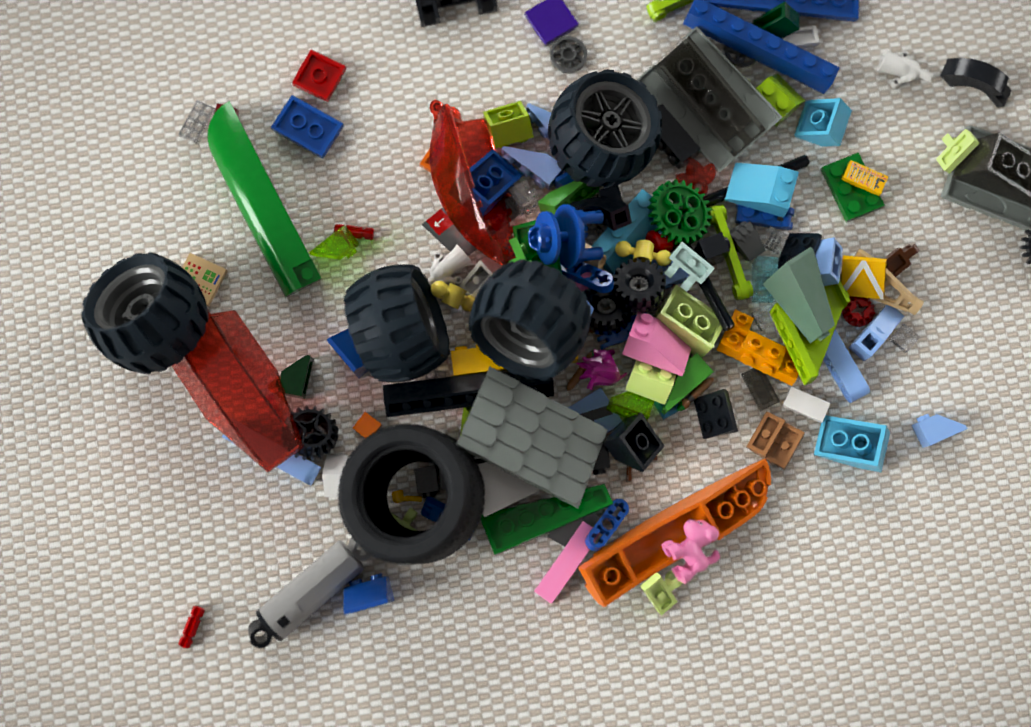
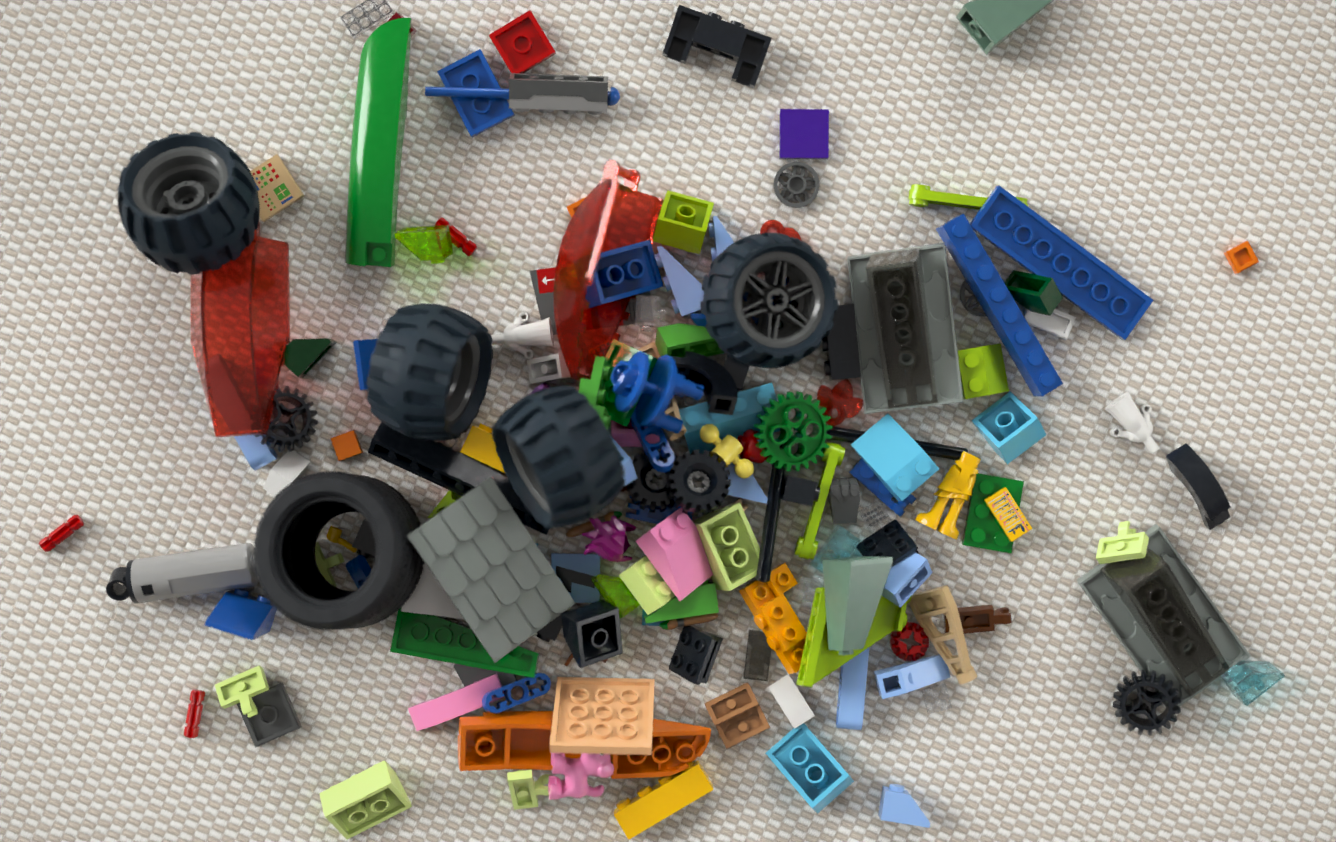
camera: 30 degrees right, 10 degrees up
(354, 96) = (544, 93): none -> piece
(376, 700) = (194, 713): none -> red axle
(401, 655) = (242, 689): none -> yellowish green plate
(433, 664) = (274, 716): none -> dark grey tile
(452, 295) = (510, 370): light yellow piece -> none
(546, 681) = (364, 800): none -> yellowish green slope
(683, 496) = (603, 716): none -> light nougat plate
(691, 263) = (765, 494): light aqua plate -> none
(764, 535) = (662, 800): none -> yellow brick
(816, 181) = (957, 486): none -> yellow piece
(864, 276) = (932, 615): yellow tile -> none

